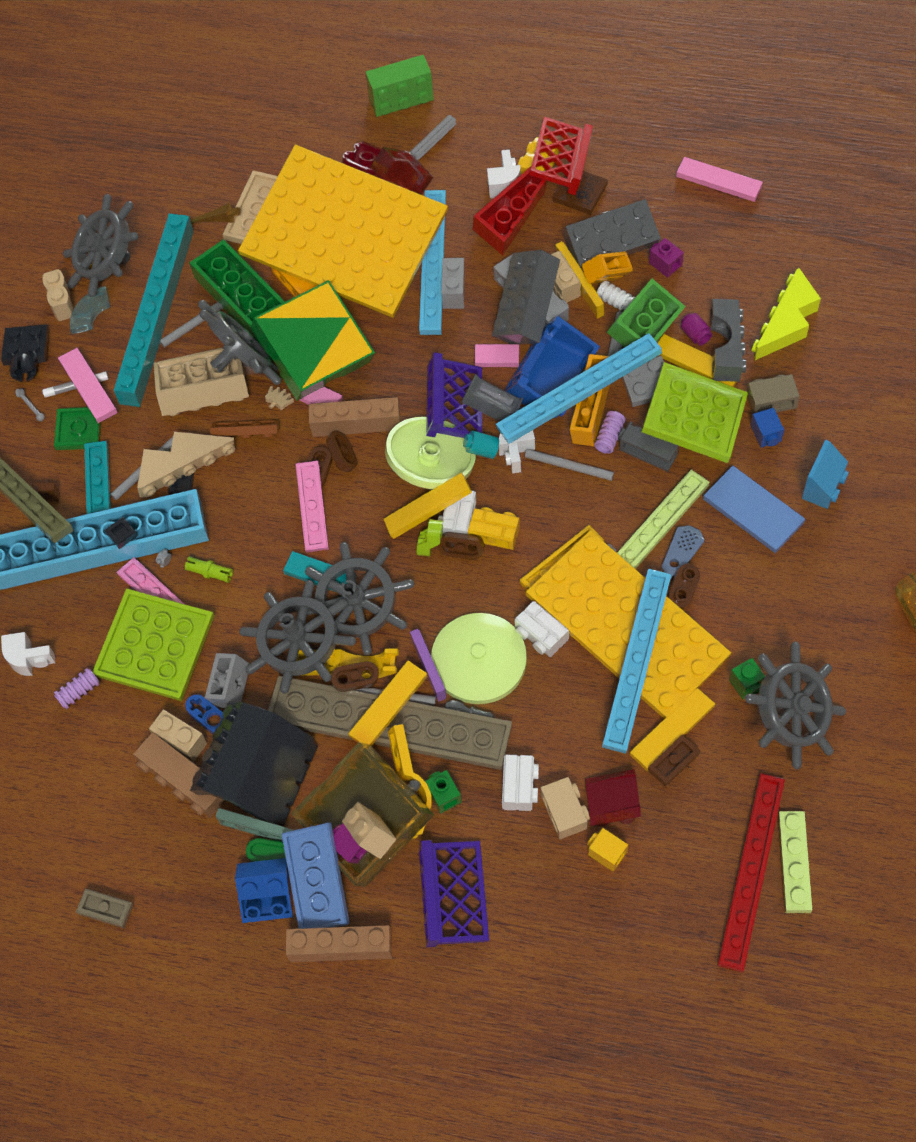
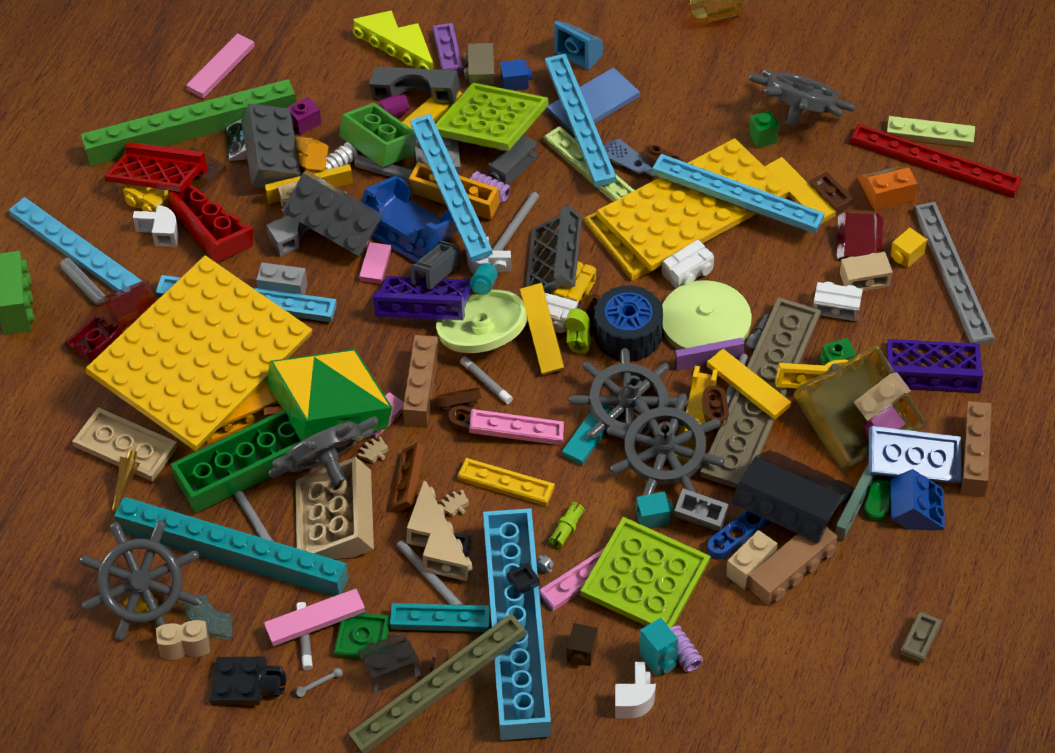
camera: 85 degrees left, 10 degrees down
(42, 454) = (389, 662): none -> clear smoke brick
(63, 662) = (658, 647): none -> teal brick
(74, 601) = (582, 644): none -> dark brown brick
(226, 474) = (455, 504): none -> tan piece
(229, 638) = (654, 510): none -> teal brick
(254, 511) = (506, 482): none -> yellow tile
(365, 480) = (486, 380): none -> light grey bar
(448, 581) = (630, 320): none -> black wheel
(471, 124) = (72, 245): none -> medium azure plate
(524, 502) = (565, 252): none -> dark grey fence
(586, 904) = (953, 274): none -> light grey tile
(636, 170) = (183, 123): none -> bright green brick
(697, 819) = (889, 187): none -> orange slope
(714, 496) = (580, 120): none -> medium azure plate
(795, 362) = (447, 47): none -> medium lavender tile

